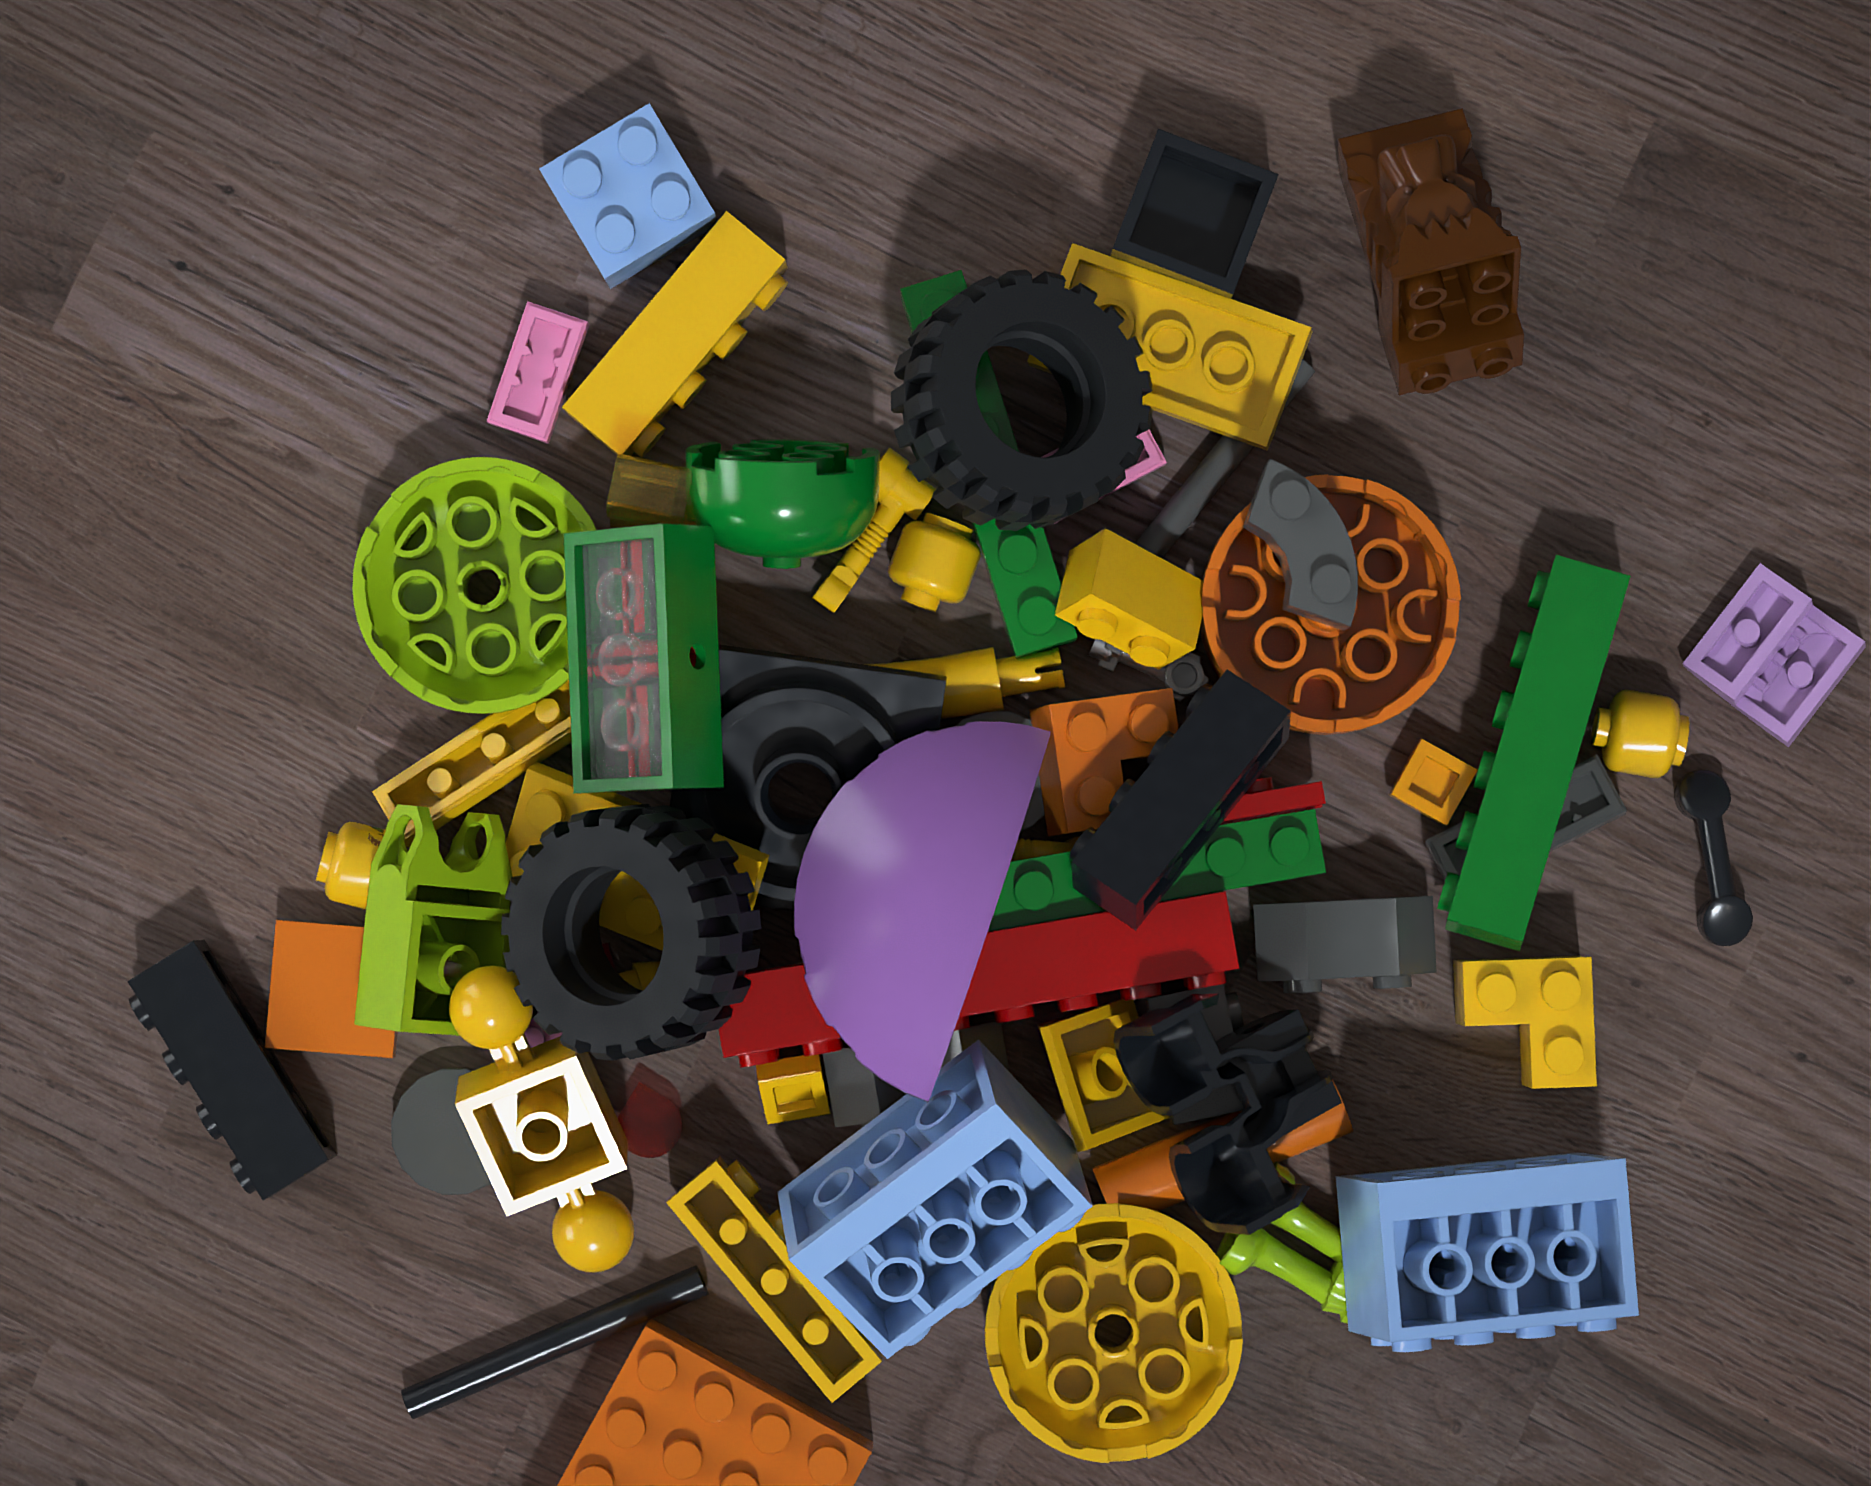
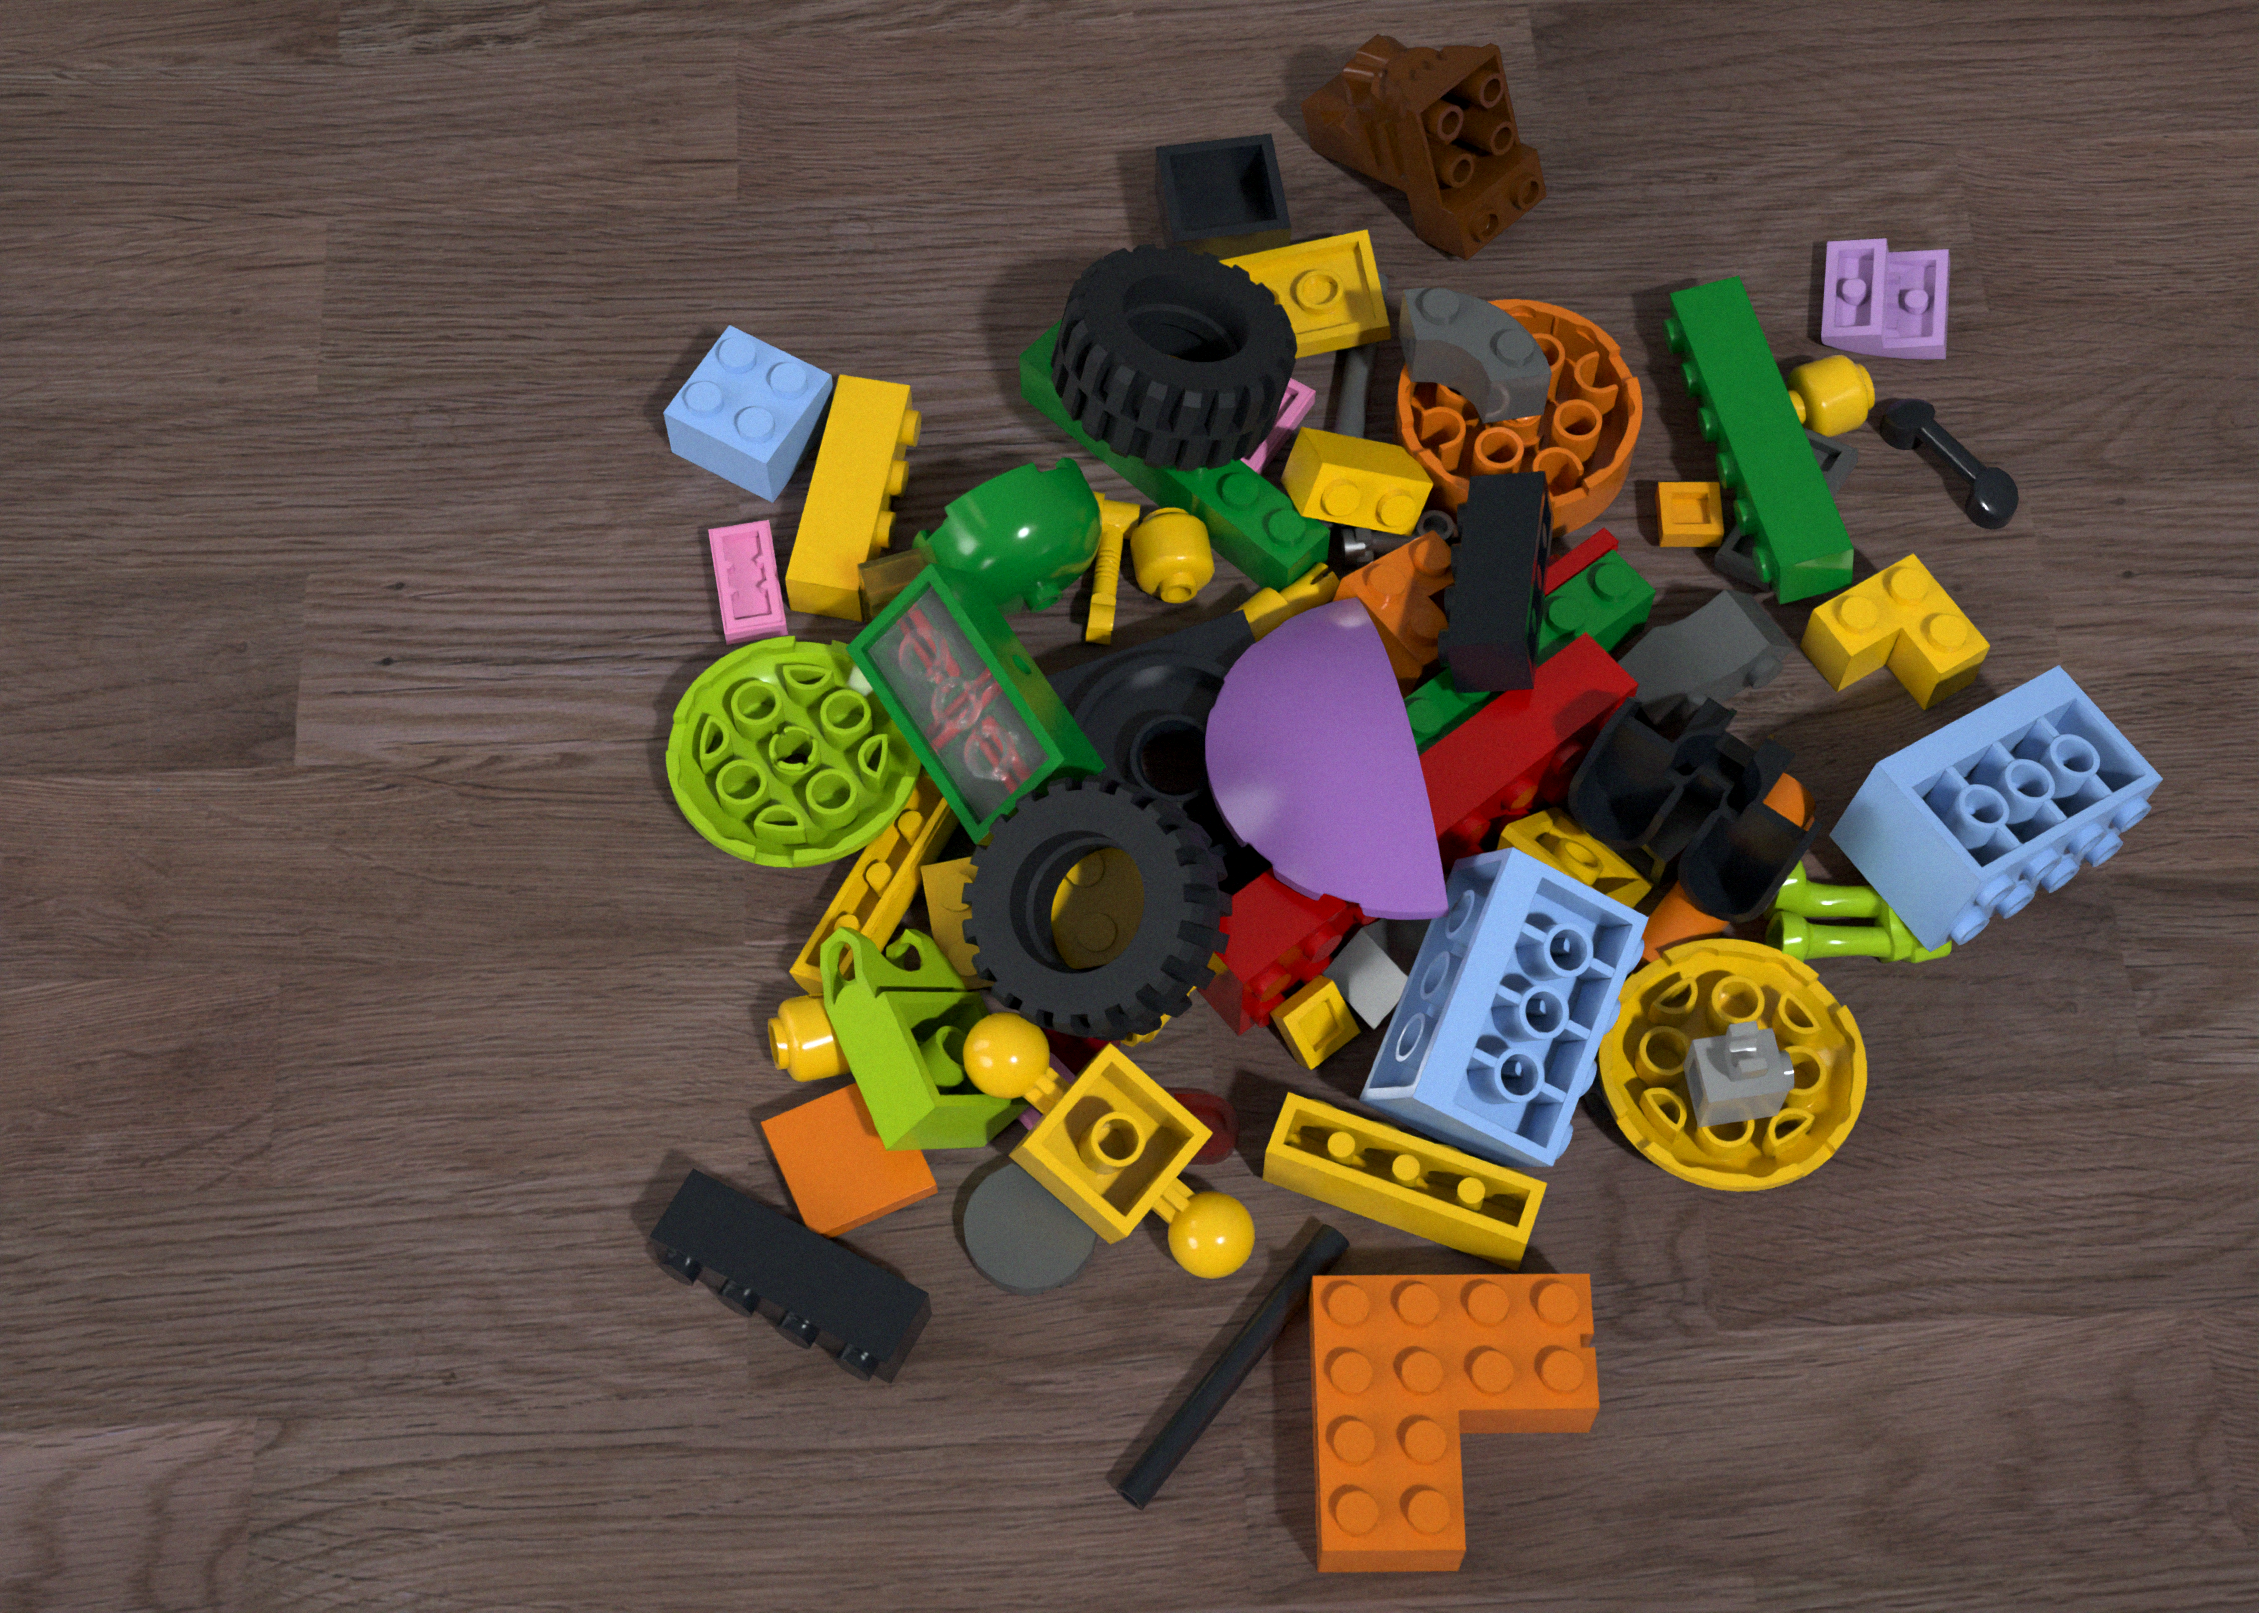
camera: 30 degrees left, 25 degrees down
(1098, 1363) = (1737, 1075): none -> light grey brick

